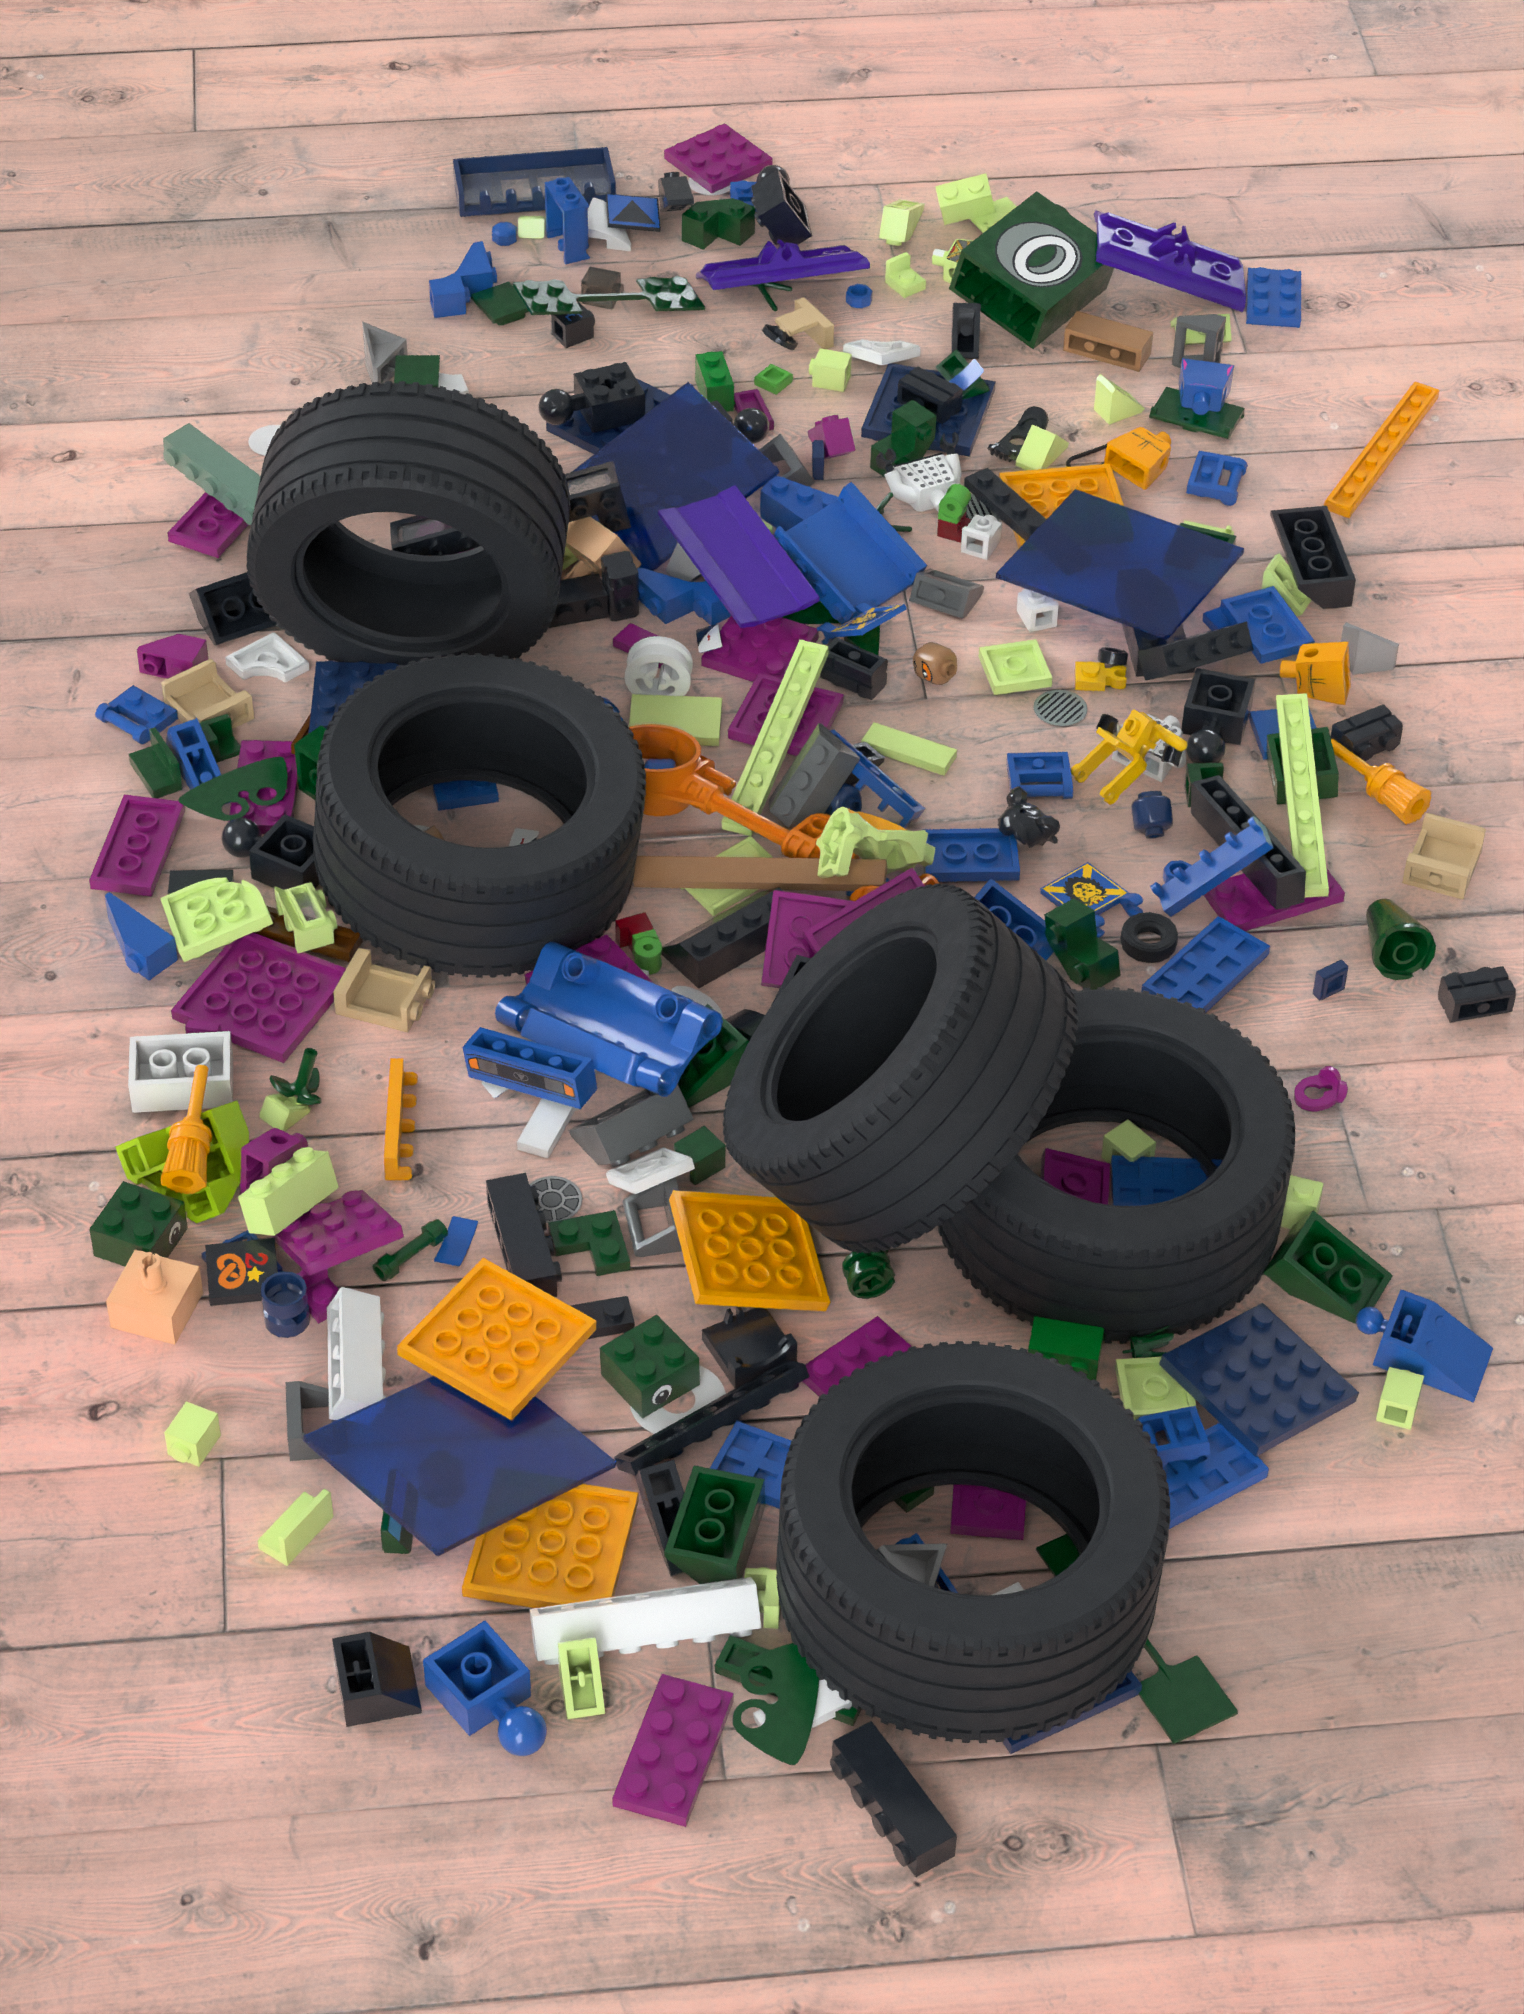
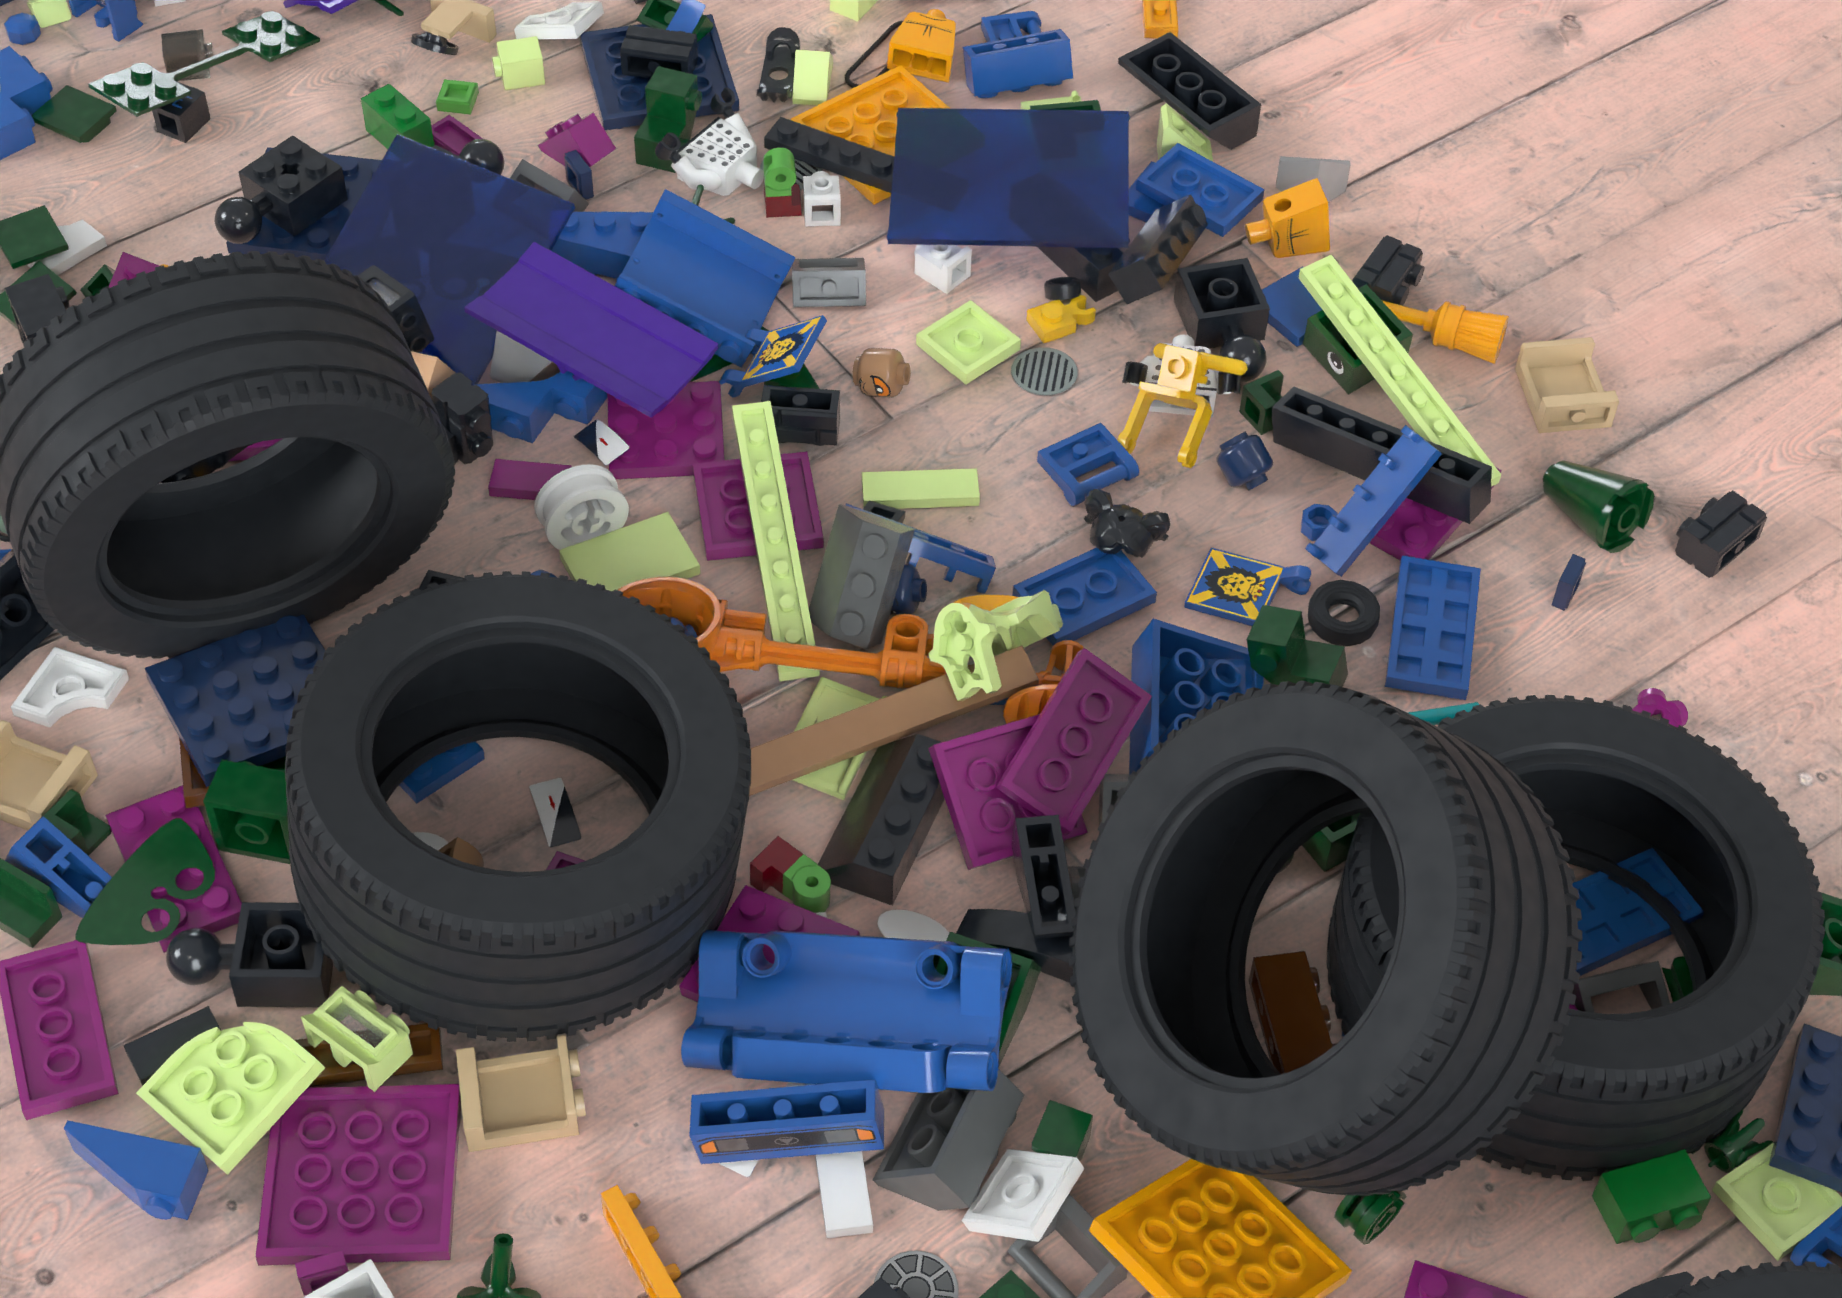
camera: 30 degrees left, 5 degrees up
(1198, 491) = (1018, 63): none -> blue brick

